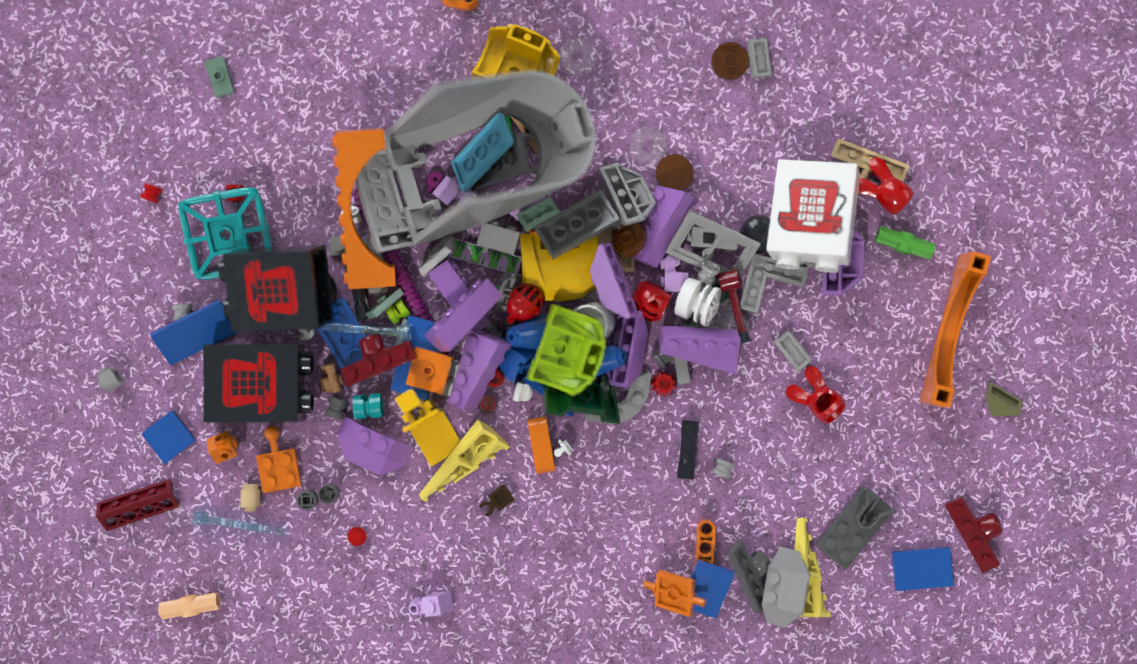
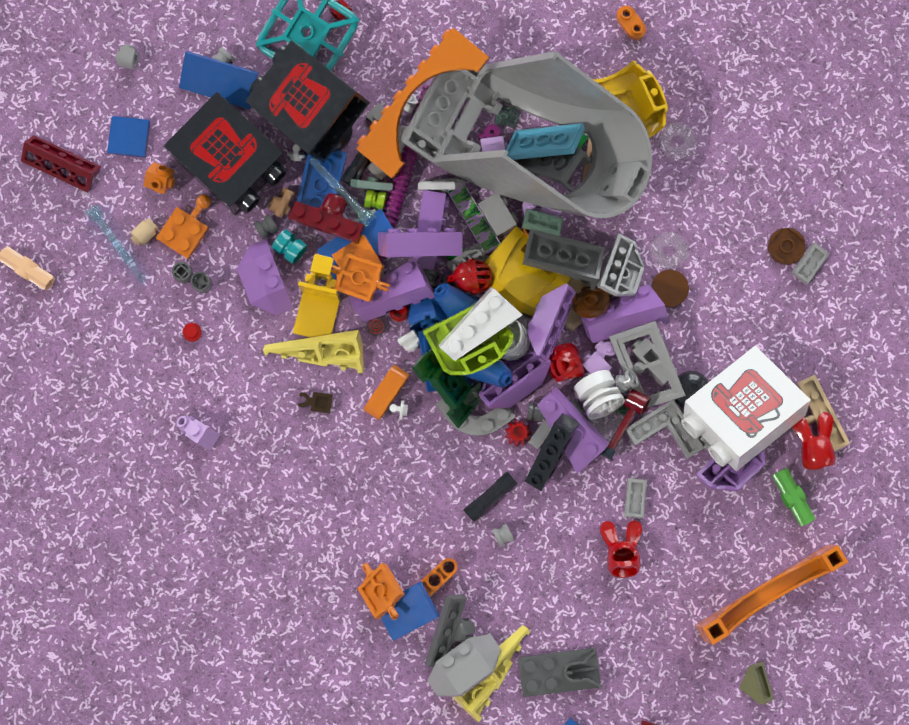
camera: 40 degrees right, 5 degrees down
(435, 156) = (508, 116): none -> slope
(443, 383) = (359, 277): none -> orange plate
(565, 336) = (479, 324): none -> white wedge
(704, 376) = (552, 451): none -> black brick

